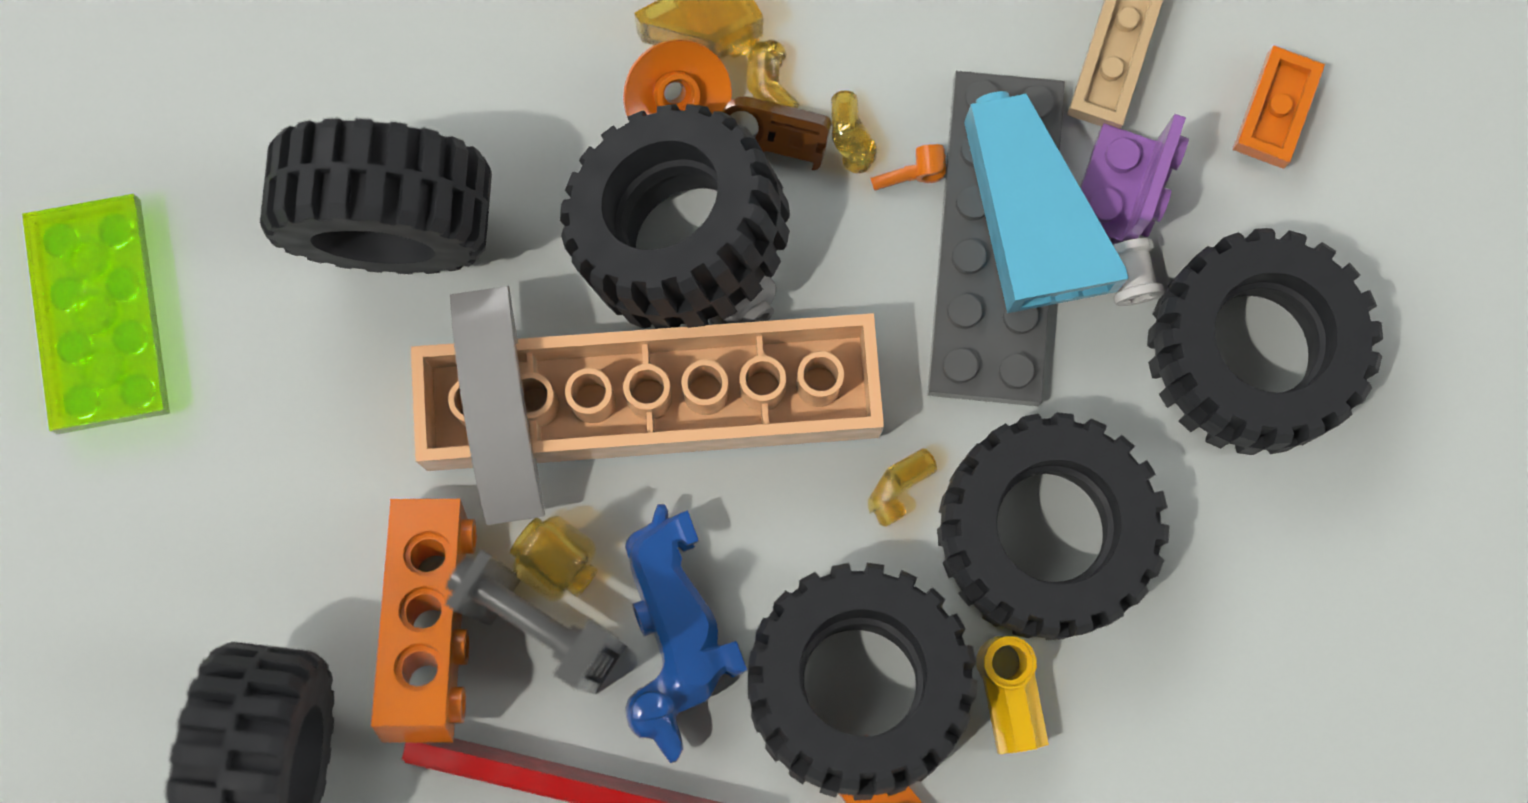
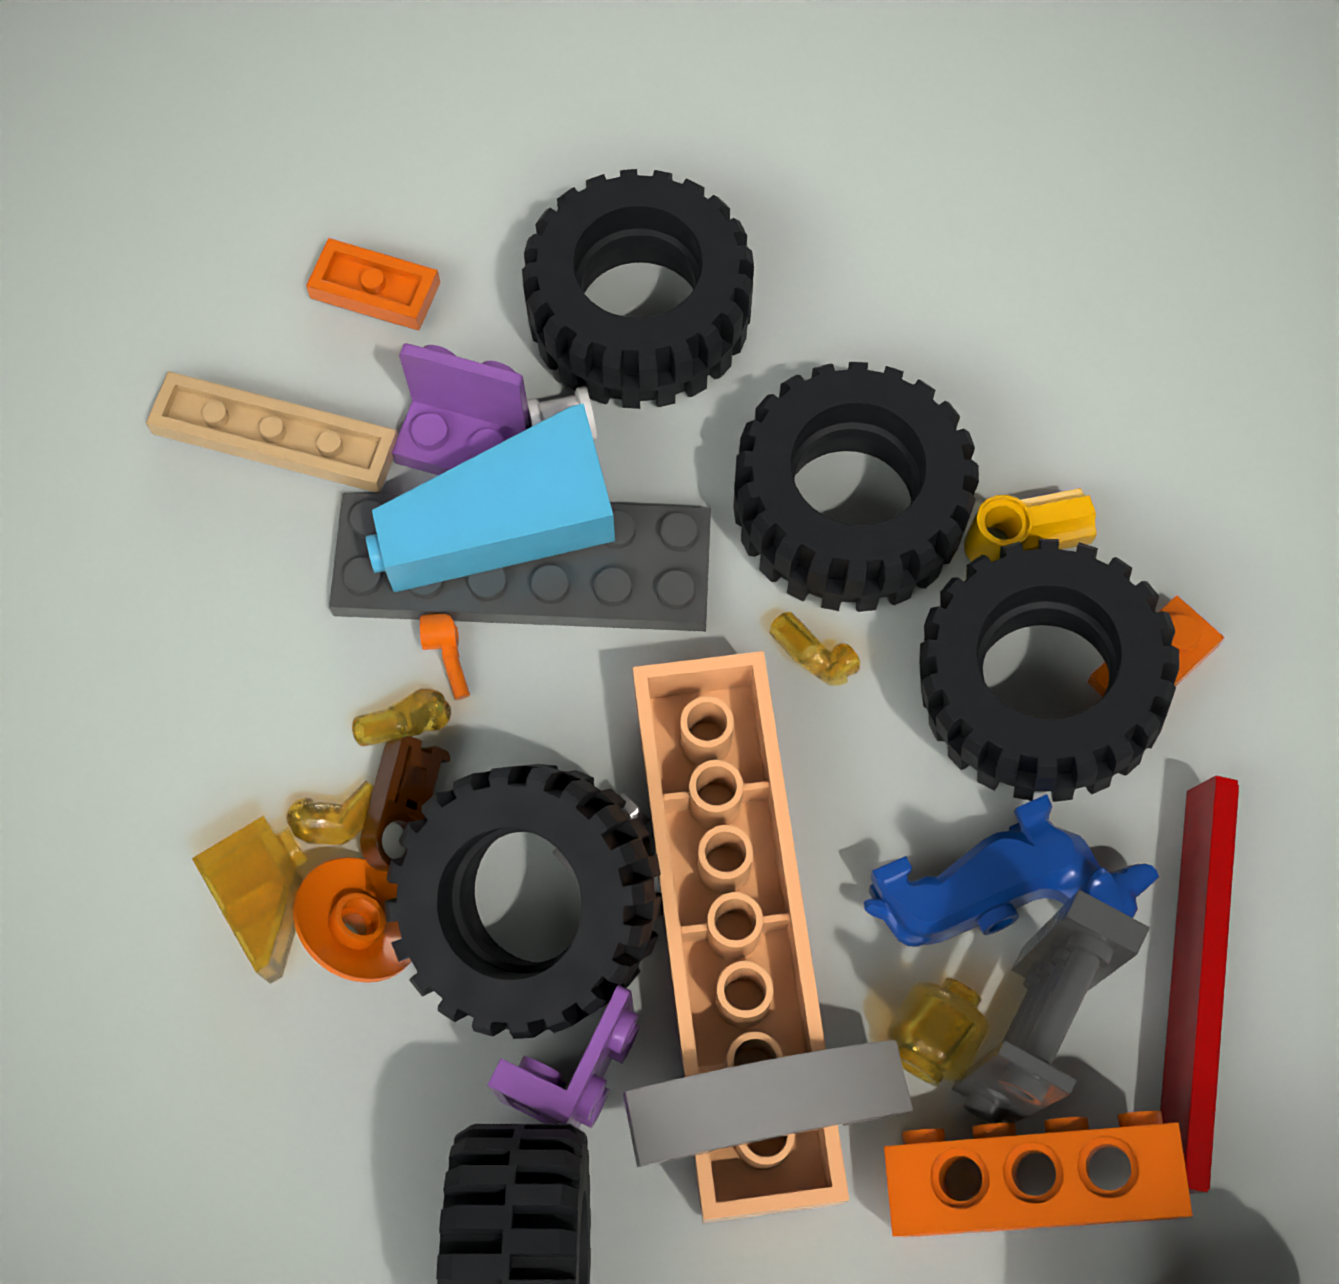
camera: 90 degrees left, 10 degrees down
(516, 245) = (538, 1088): none -> medium lavender bracket

